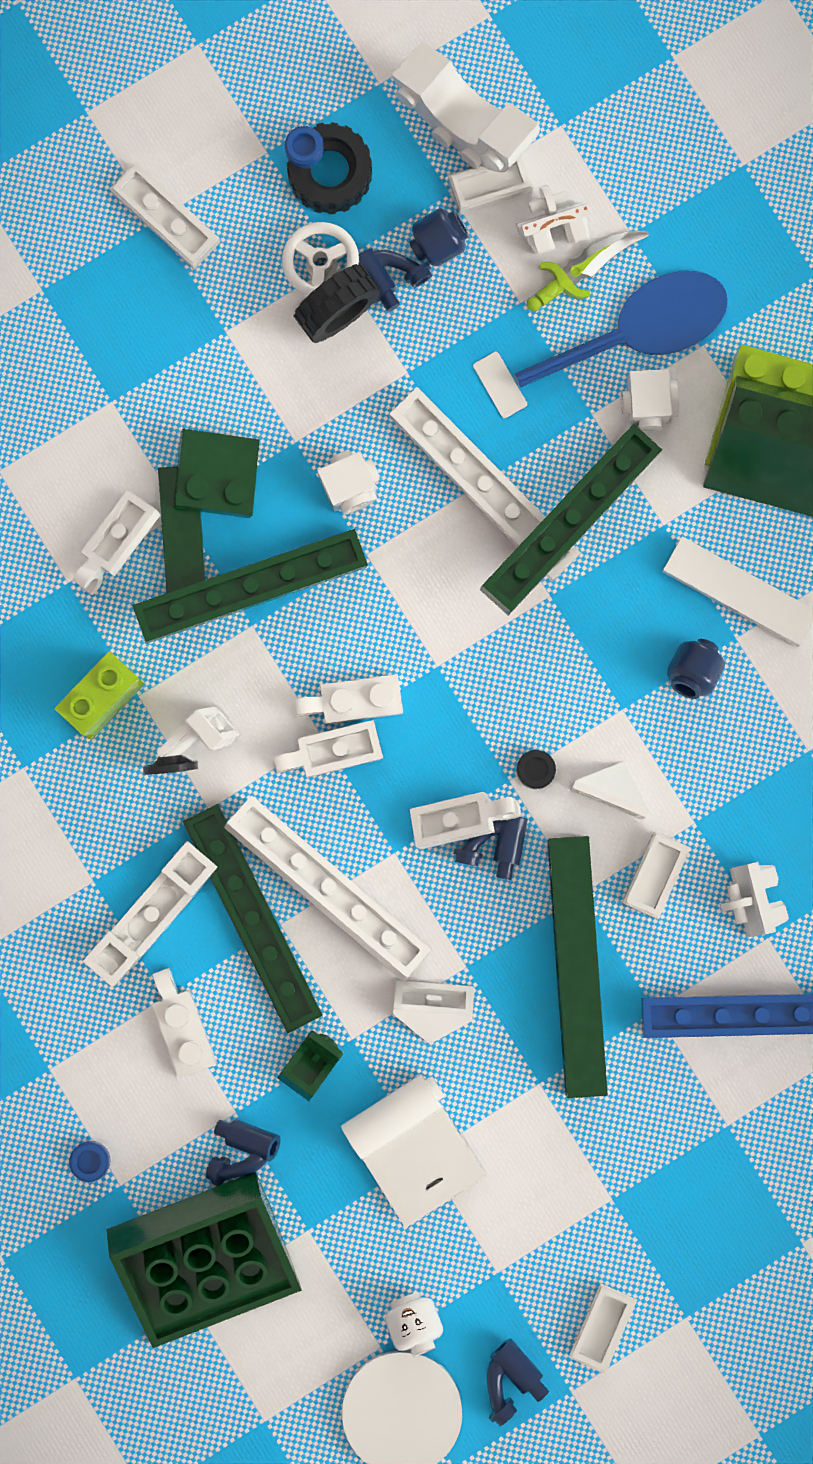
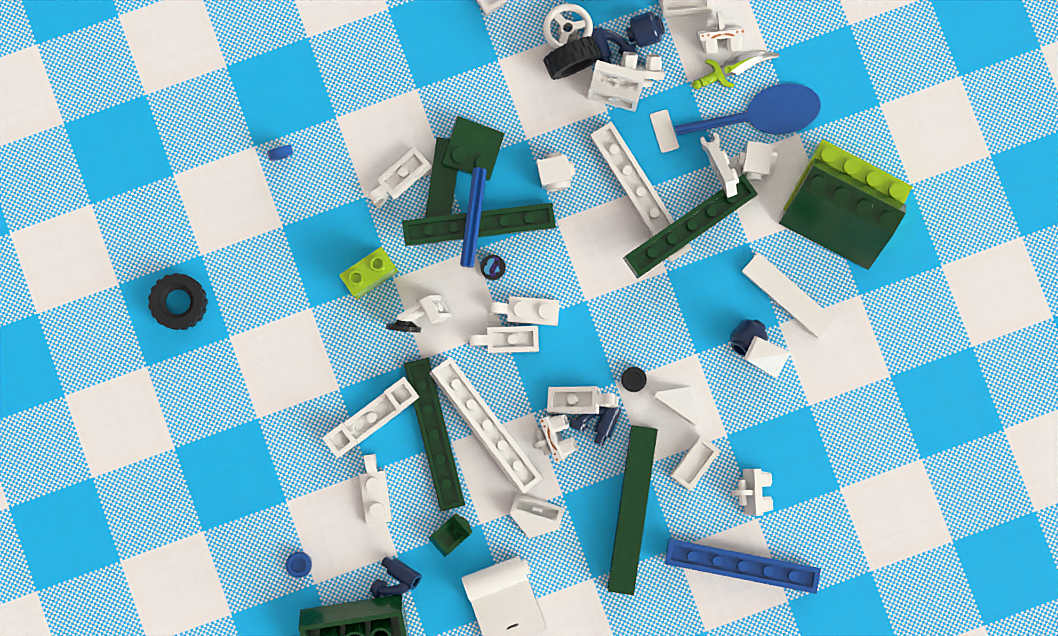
camera: 15 degrees right, 0 degrees up
(239, 577) = (473, 217): none -> blue axle
(286, 646) = (493, 267): none -> black tile
(412, 331) = (616, 85): none -> white slope
(427, 301) = (652, 67): none -> white hips
(430, 886) = (551, 440): none -> white hips
(594, 414) = (719, 163): none -> white plate
(729, 690) = (766, 356): none -> white slope

